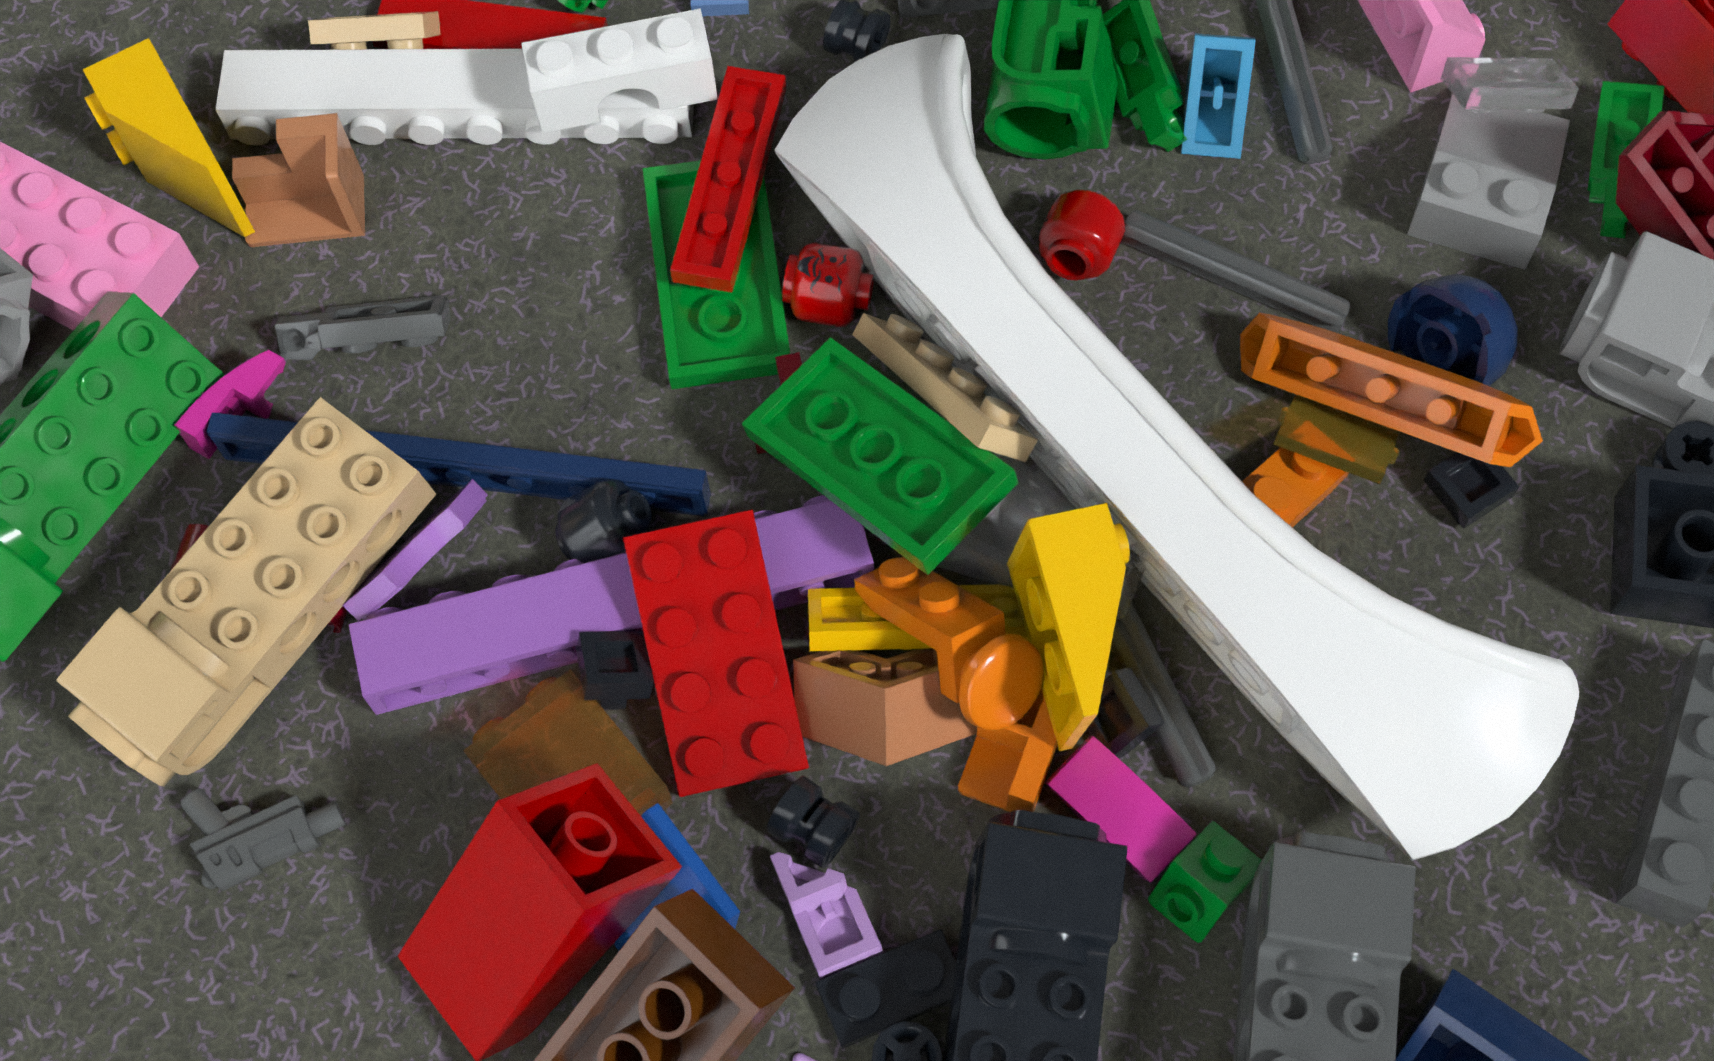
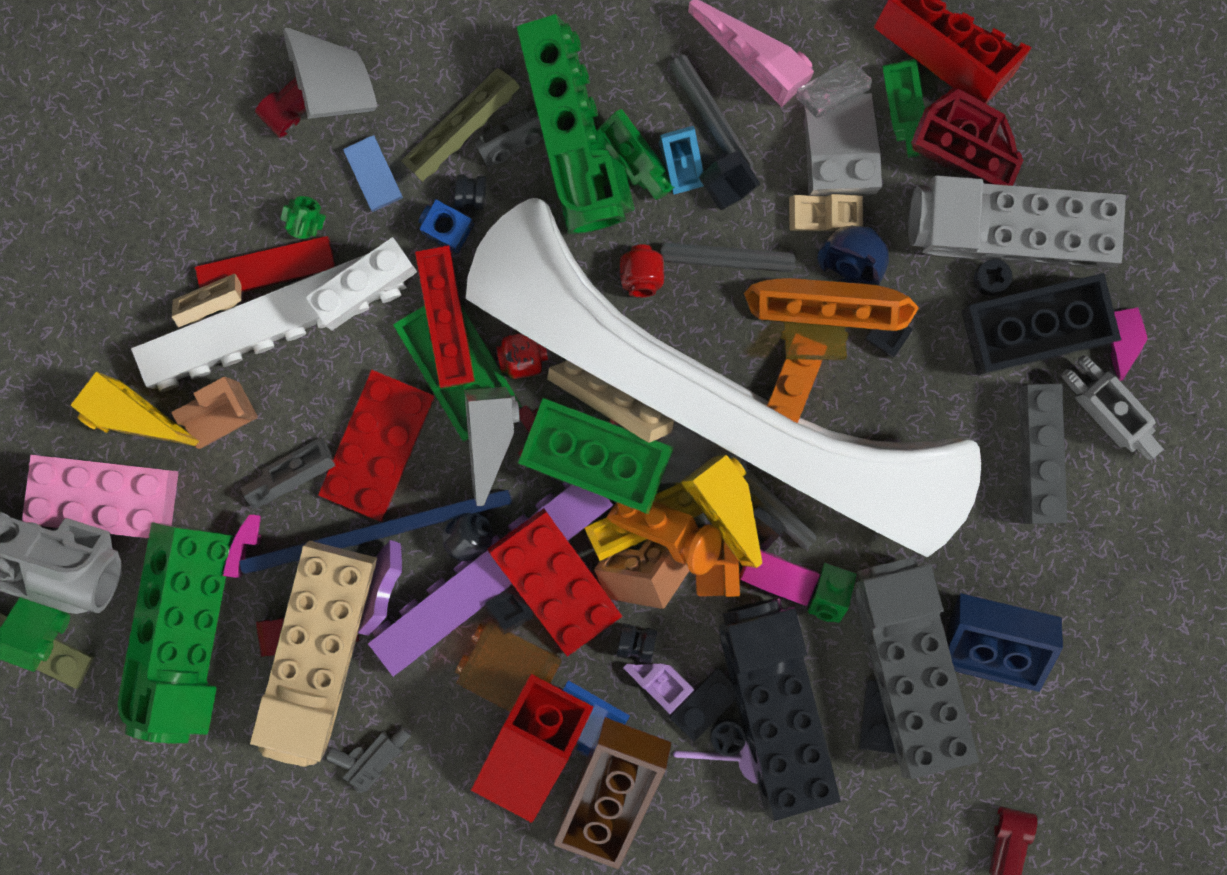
camera: 25 degrees left, 20 degrees up
(527, 341) = (376, 445): none -> red plate
(714, 358) = (490, 430): none -> light grey slope
(795, 41) = (456, 236): none -> blue brick
(1282, 151) = (729, 180): none -> black panel
(1407, 256) = (825, 212): none -> tan slope

